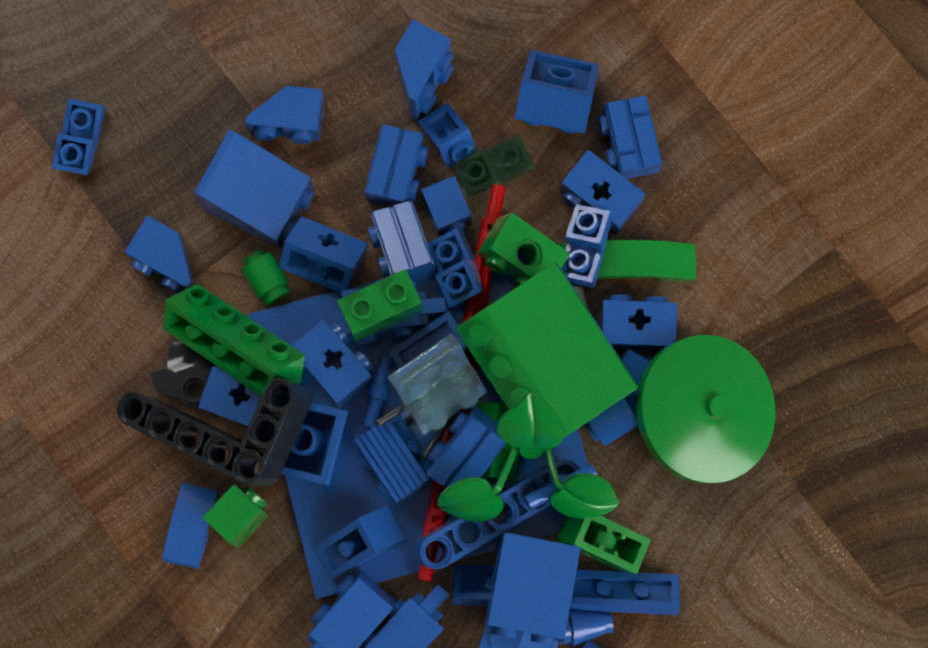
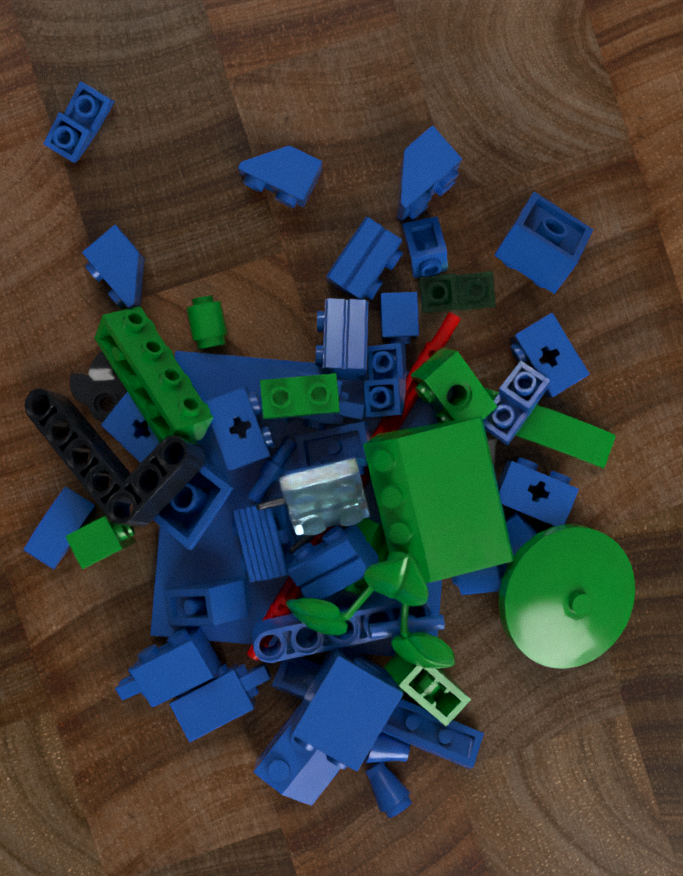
camera: 20 degrees right, 10 degrees up
(254, 190) = (224, 236): blue slope -> none
(323, 255) = (266, 322): blue brick -> none
(630, 137) = (596, 312): blue brick -> none

